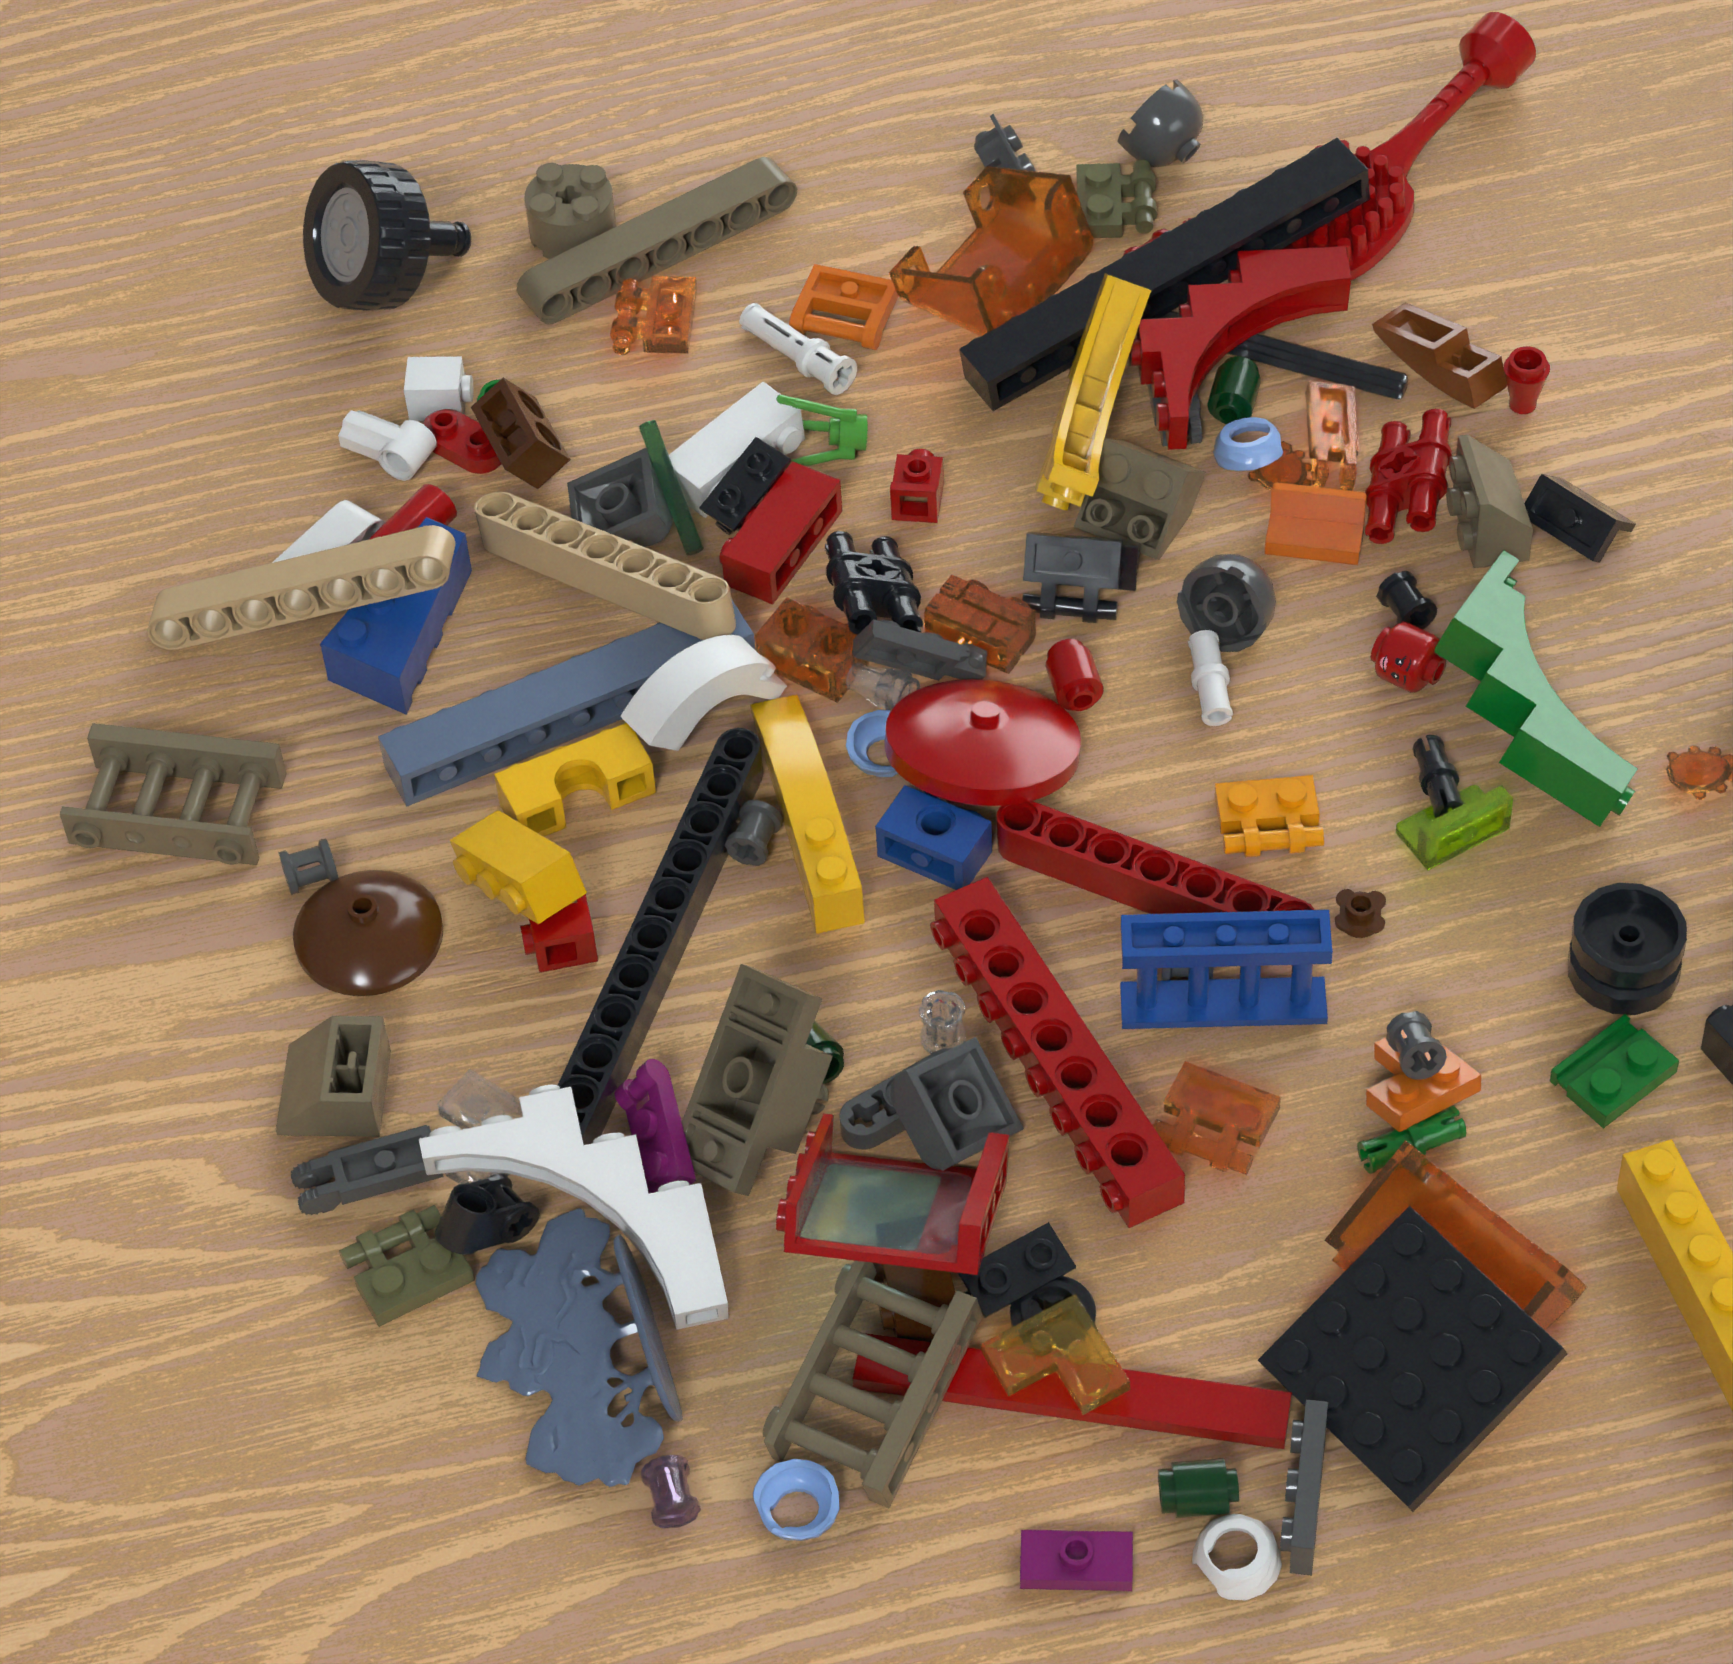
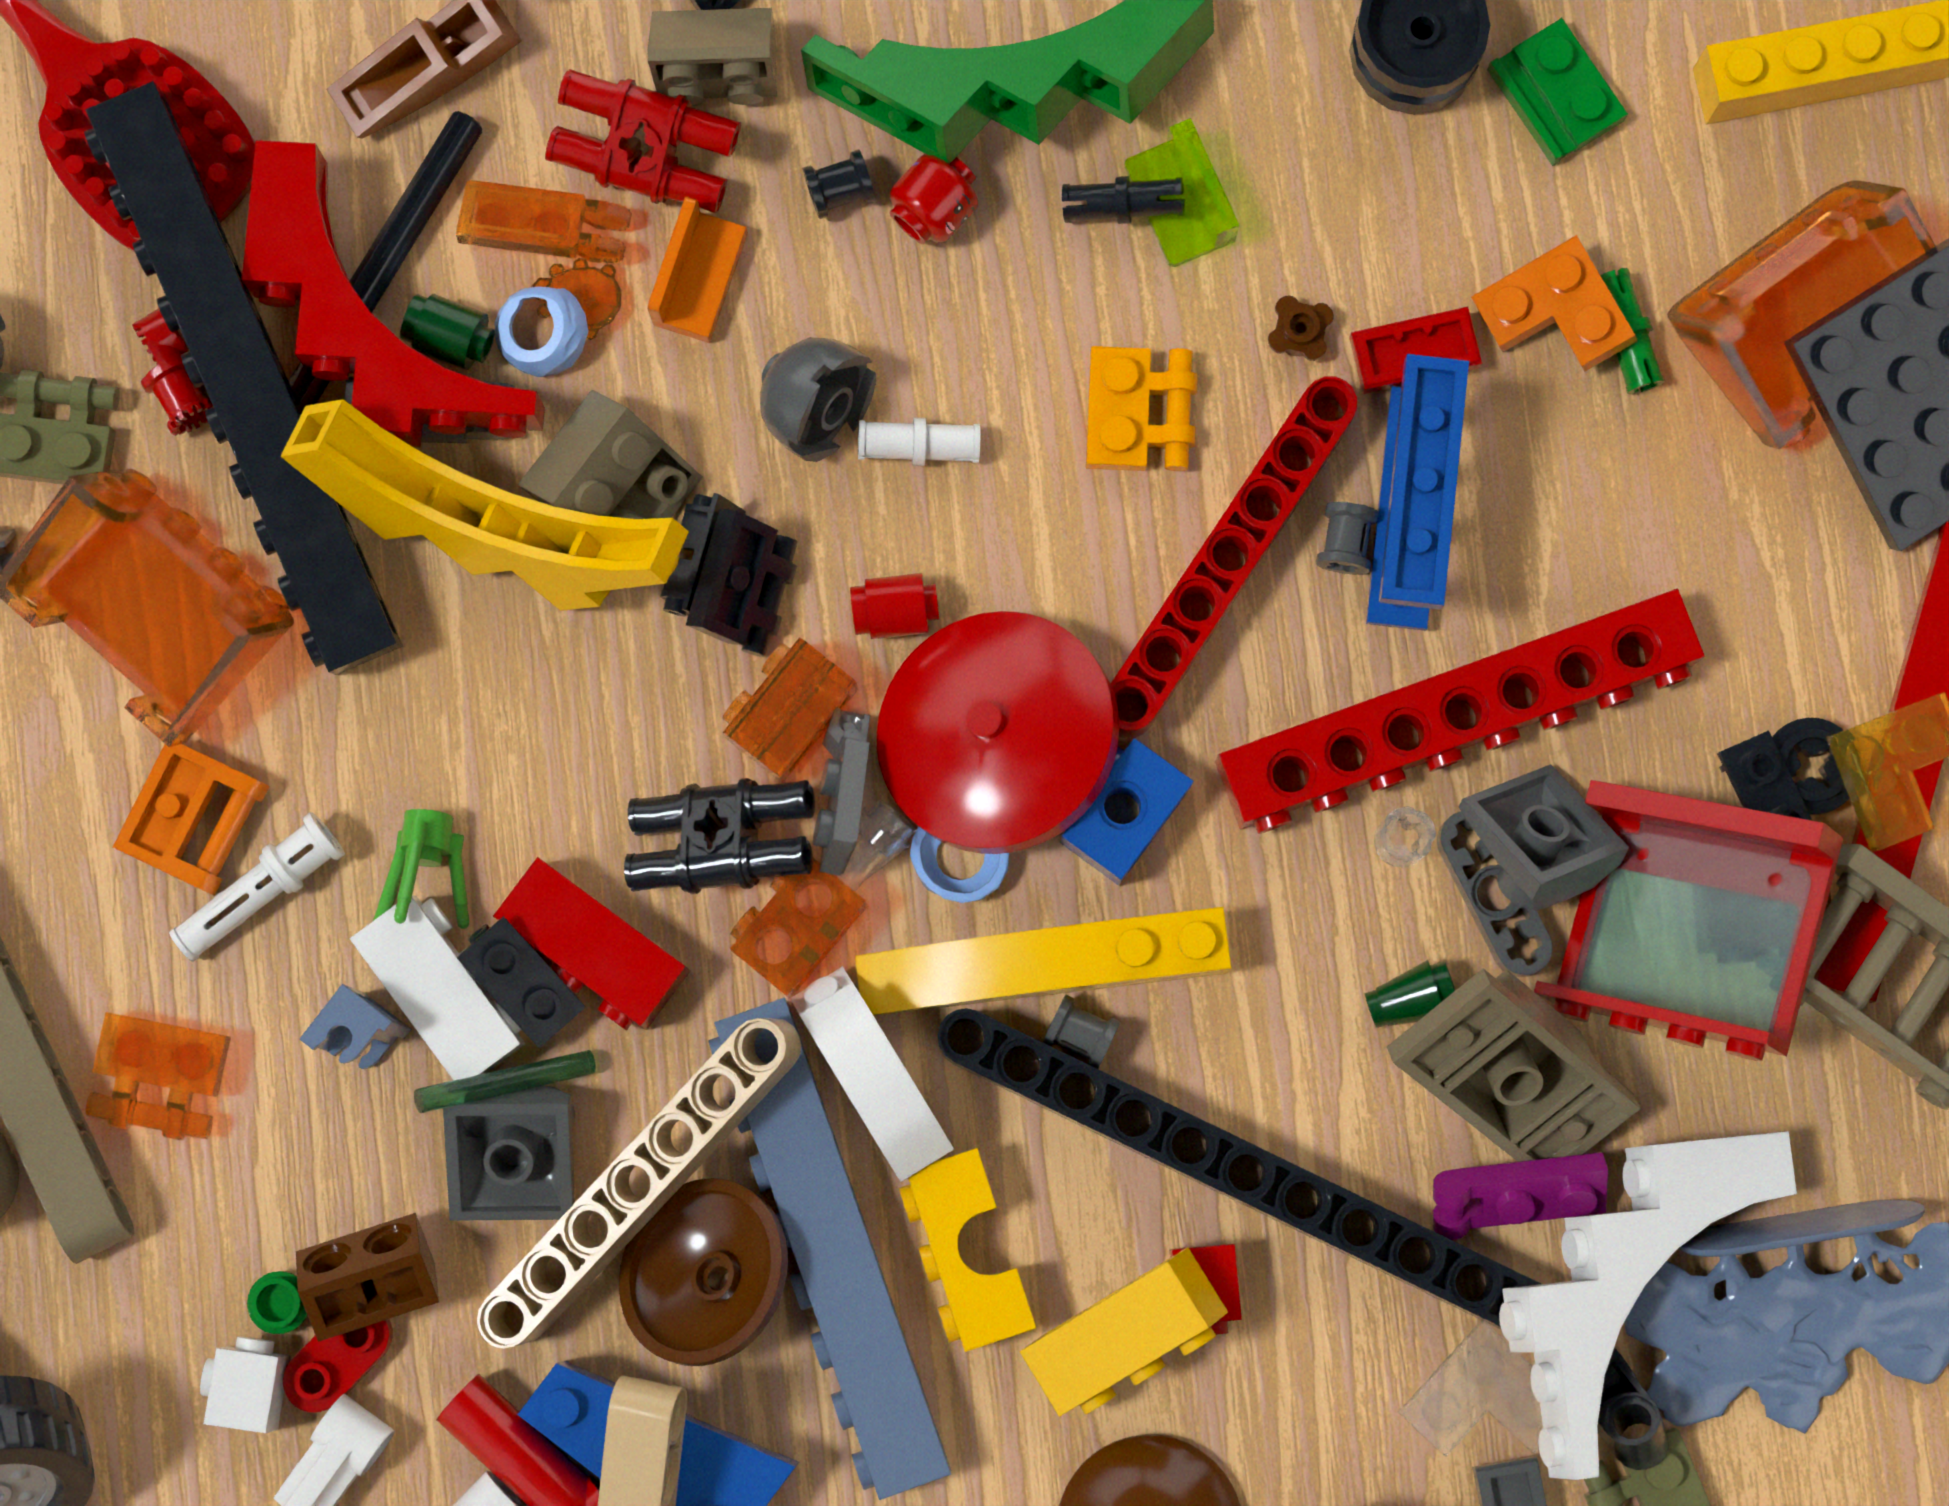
camera: 85 degrees left, 30 degrees up
(540, 618) = (676, 1270): none -> reddish brown dish
(703, 388) = (354, 1022): none -> sand blue hinge
(917, 476) = (556, 772): red brick -> none
(1222, 1106) = (1559, 532): clear orange plate -> none
(1359, 990) = (1382, 349): none -> red plate
(1418, 1041) = (1552, 297): dark grey bush -> none

